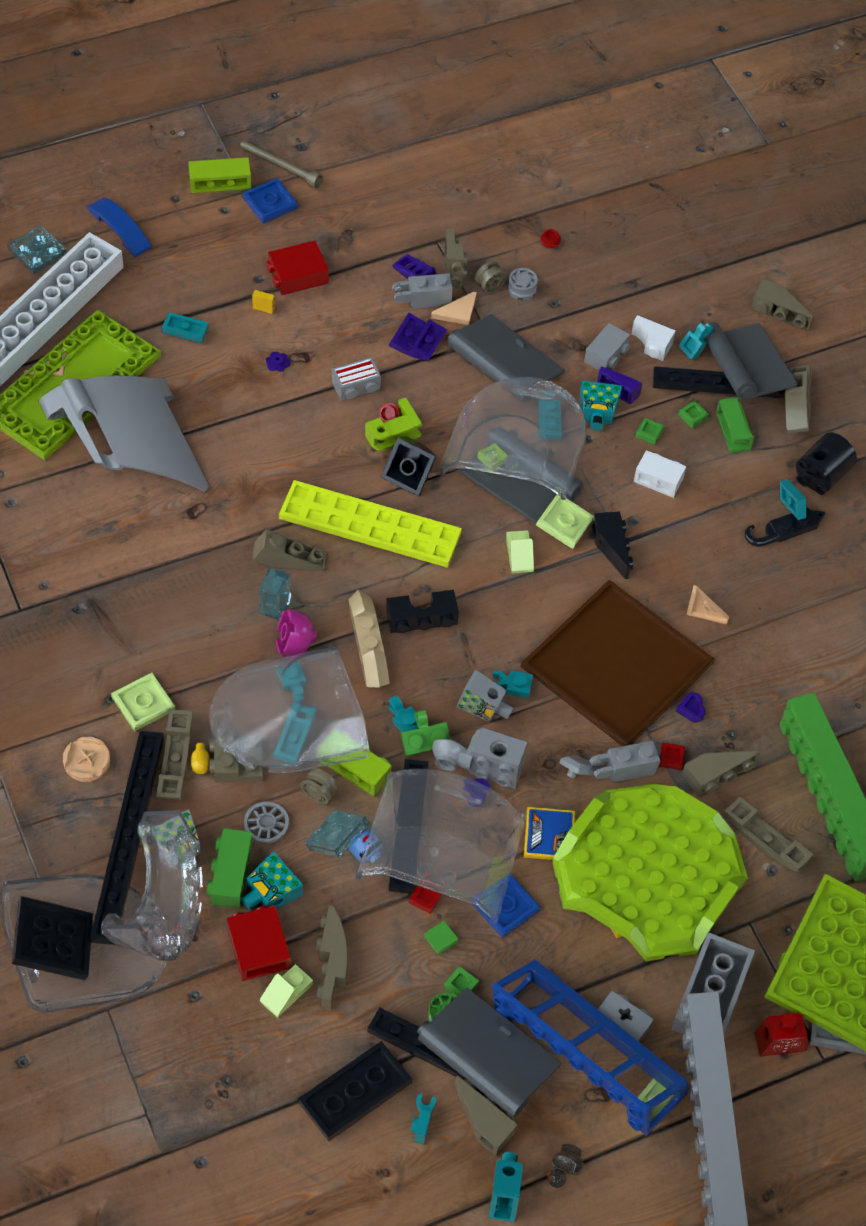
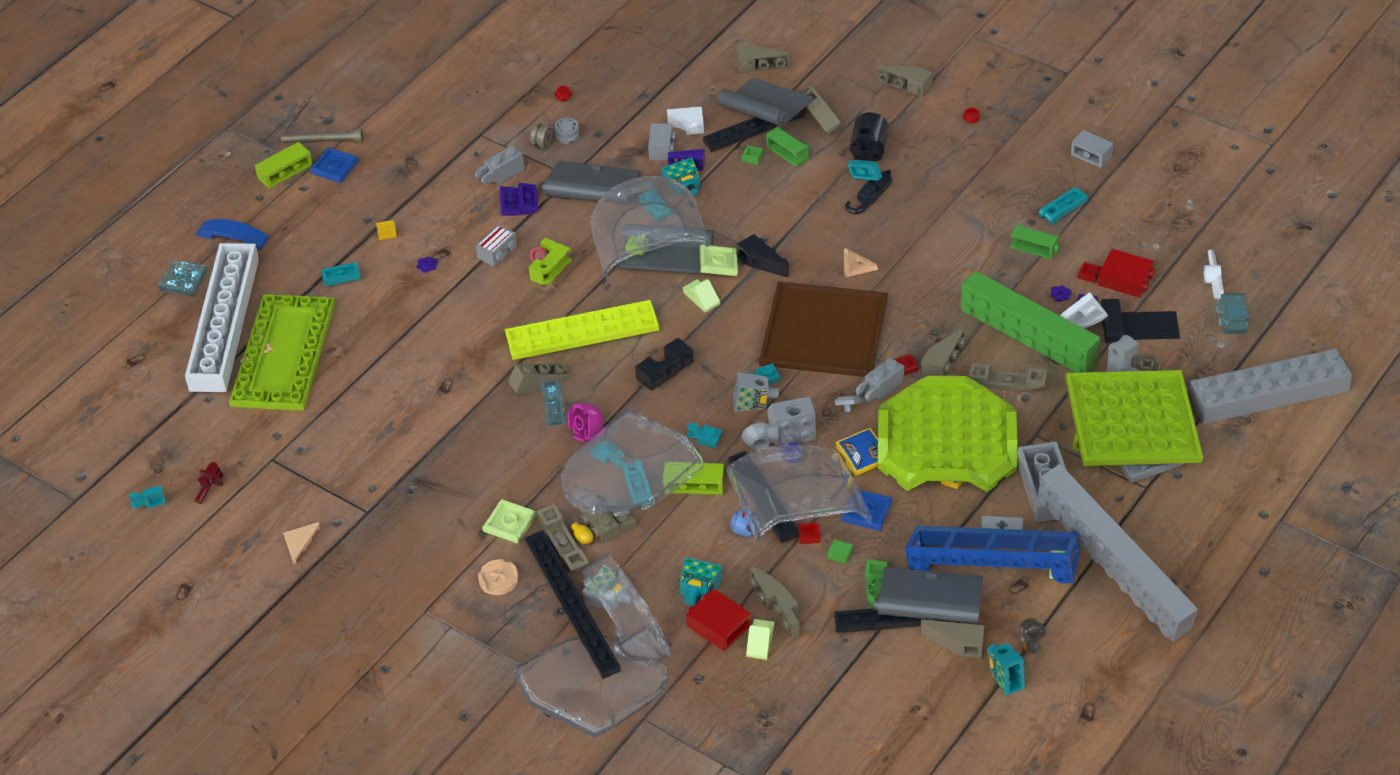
camera: 25 degrees left, 10 degrees down
(52, 938) = (574, 688): black plate -> none
(134, 422) = (357, 345): light grey panel -> none
(230, 868) = (661, 586): bright green brick -> none
(266, 822) = (661, 548): light grey wheel -> none
(297, 267) = (394, 196): red brick -> none
(319, 786) = (682, 503): dark tan wheel -> none
(337, 833) = (719, 524): clear light blue plate -> none
(355, 1091) = (857, 670): black plate -> none
(368, 640) = (639, 399): tan brick -> none
(409, 465) = (581, 279): black slope -> none
(420, 267) = (481, 154): dark purple slope -> none
(421, 1123) = (919, 664): teal plate -> none
(423, 737) = (729, 438): bright green plate -> none
(454, 258) = (505, 133): dark tan plate -> none
(457, 311) = (533, 169): light nougat tile -> none
(649, 431) = (730, 179): bright green tile -> none
(659, 473) = (760, 200): white hinge -> none
(692, 707) = (896, 330): dark purple tile -> none
(694, 340) = (718, 108): teal plate -> none
(784, 1033) = (1110, 483): red torso -> none

